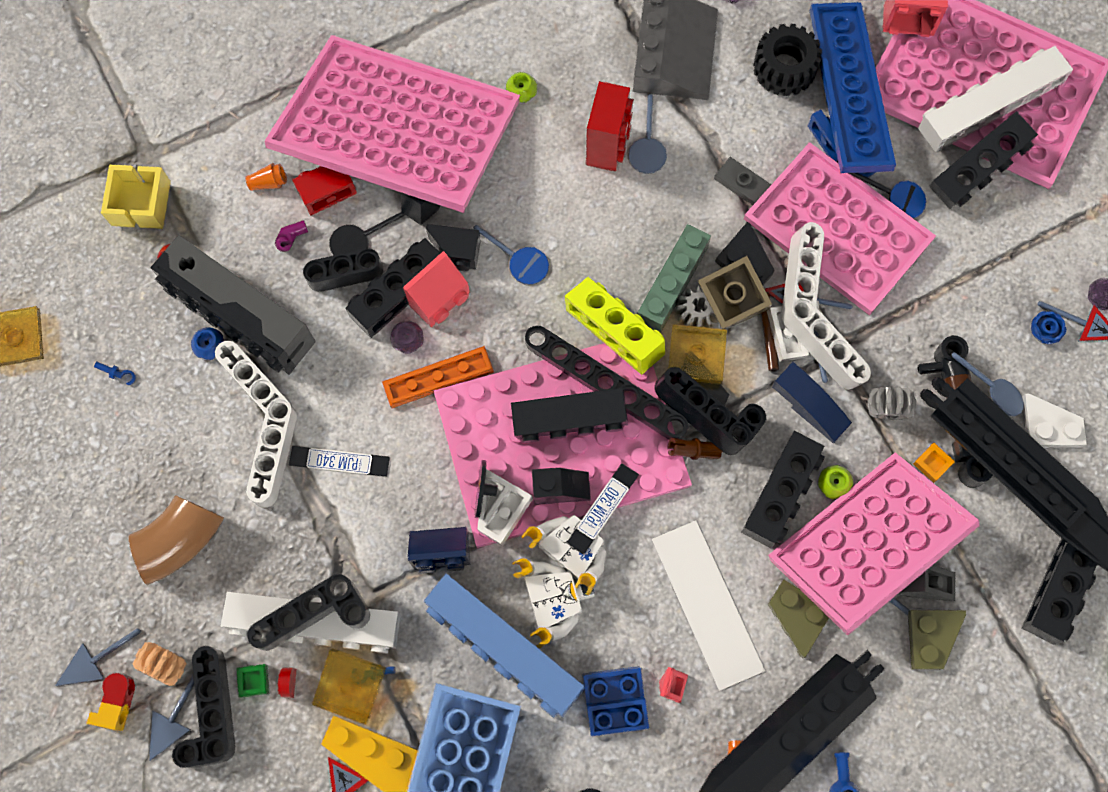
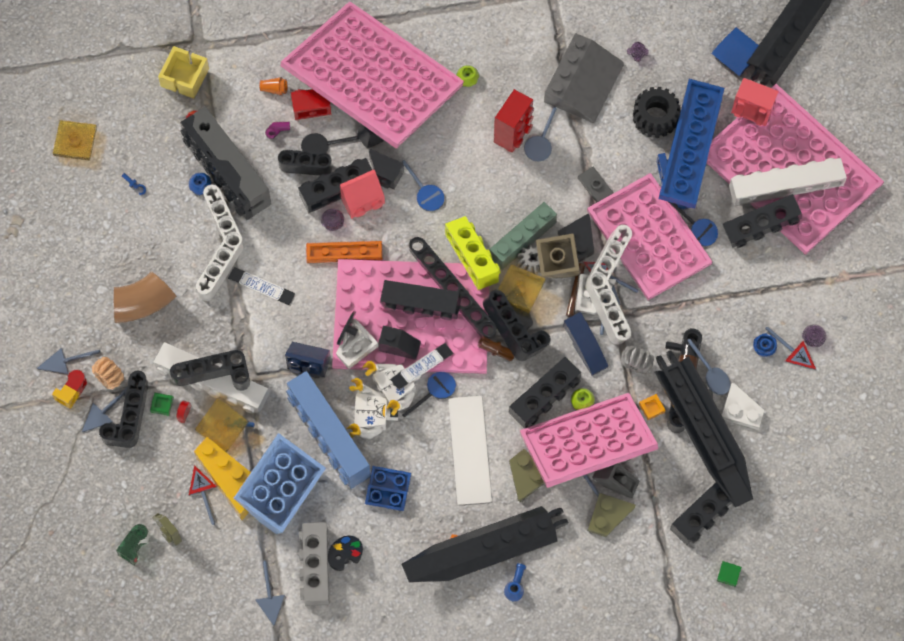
camera: 15 degrees right, 5 degrees down
(635, 525) = (440, 385): none -> blue piece
(673, 684) = (429, 490): coral slope -> none

